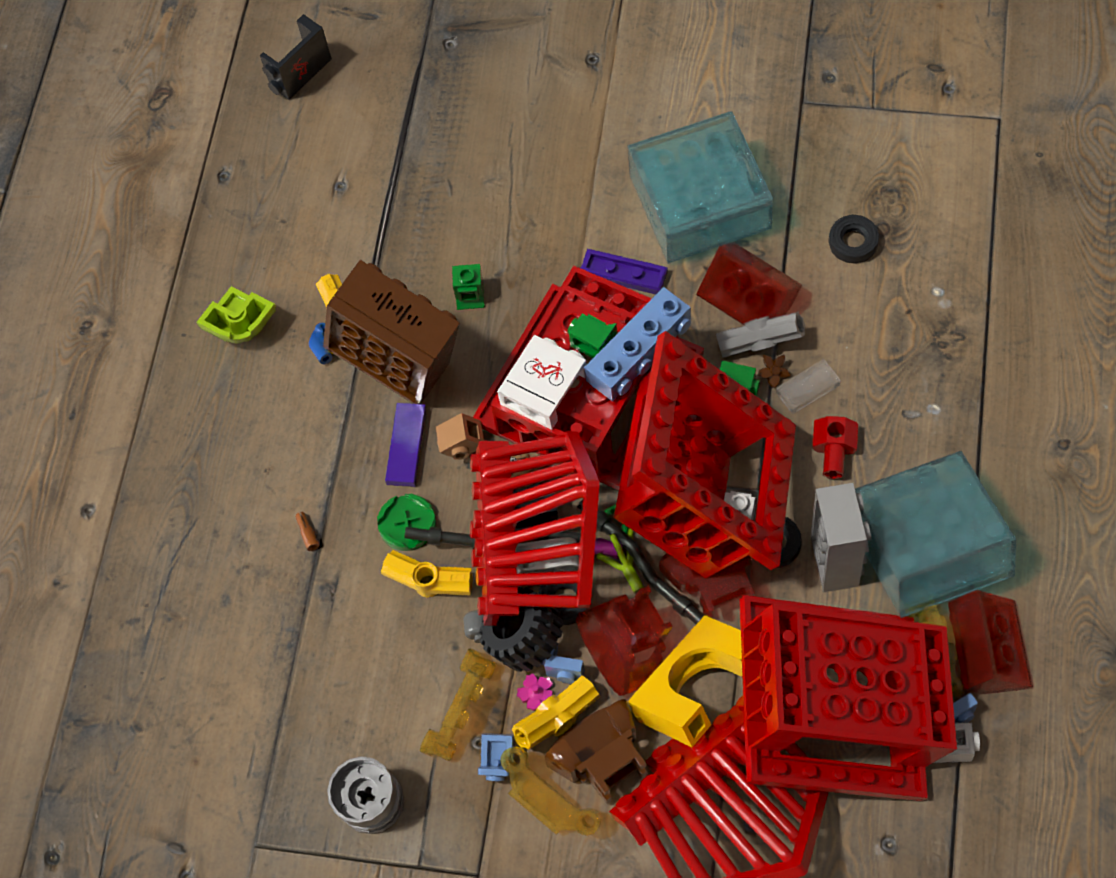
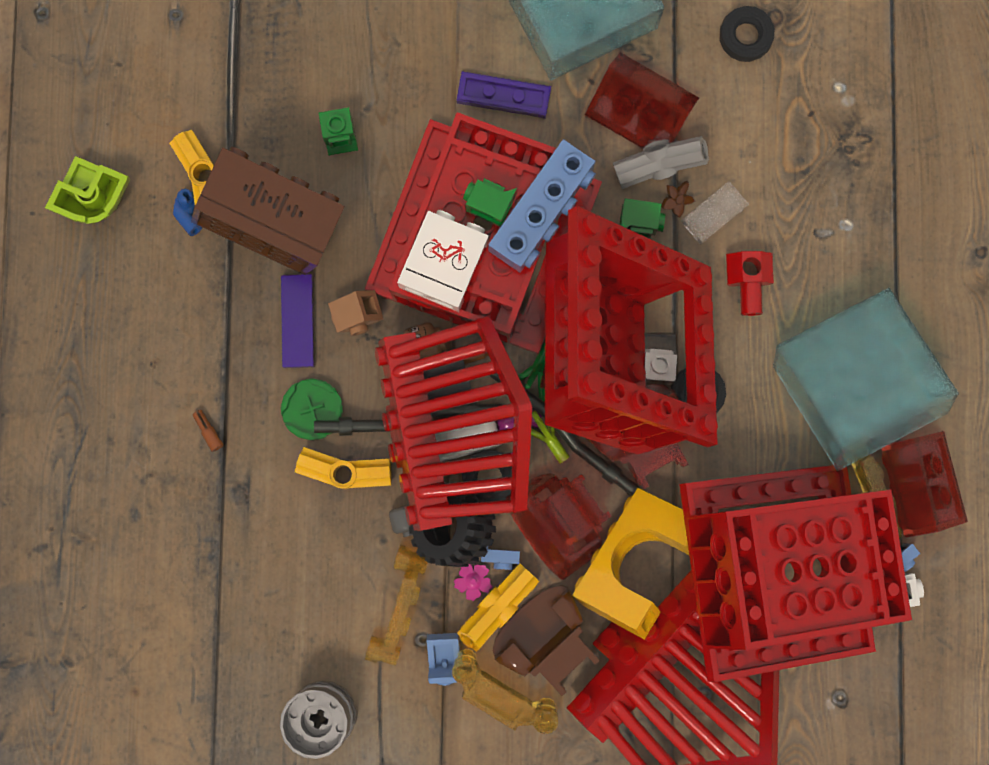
camera: 15 degrees left, 20 degrees up
(839, 536) = (773, 399): light grey brick -> none

